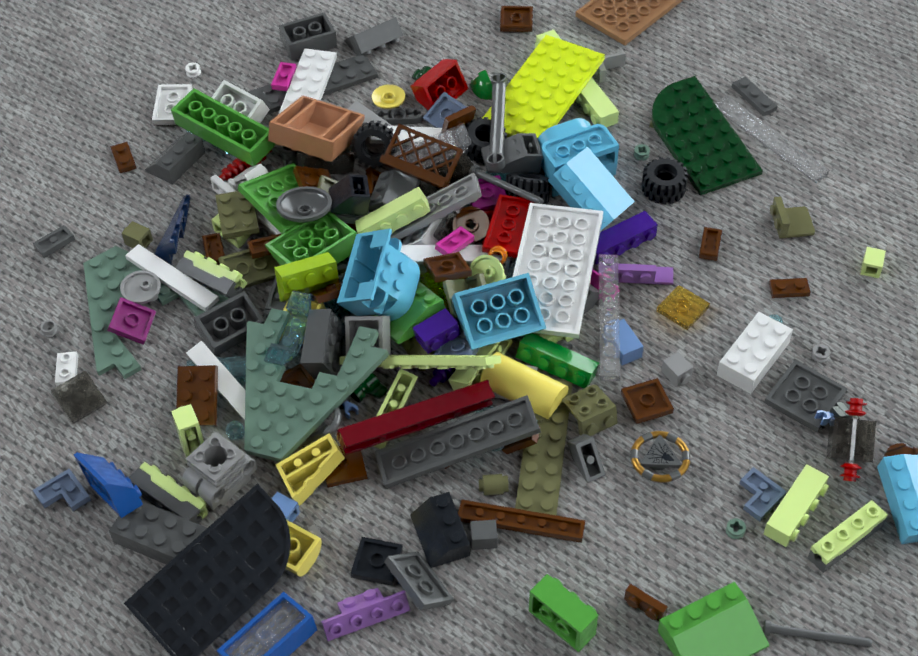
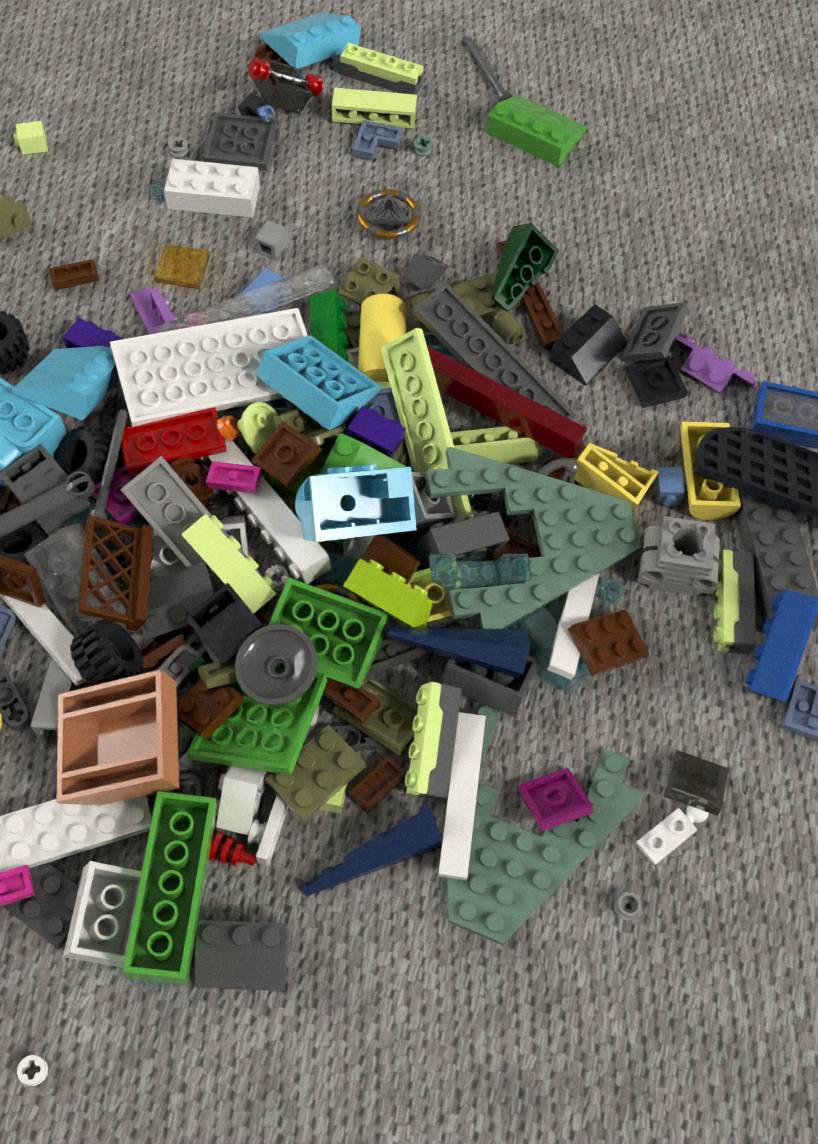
camera: 125 degrees left, 10 degrees up
(54, 241) = (493, 1017): dark grey plate -> none
(123, 157) = (278, 1043): reddish brown plate -> none
(136, 234) = (418, 899): olive brick -> none
(141, 287) = (504, 819): light grey piece -> none
(166, 99) = (130, 1044): white plate -> none
(187, 428) = (667, 604): yellowish green brick -> none
(236, 310) = (494, 649): none -> dark blue wedge
(483, 534) = (567, 309): dark grey brick -> none
(545, 517) = (523, 260): none -> dark green wedge
(563, 612) = (604, 215): bright green brick -> none
(638, 599) = (546, 170): reddish brown plate -> none
(647, 401) = (325, 248): reddish brown plate -> none
(789, 288) = (101, 195): reddish brown plate -> none

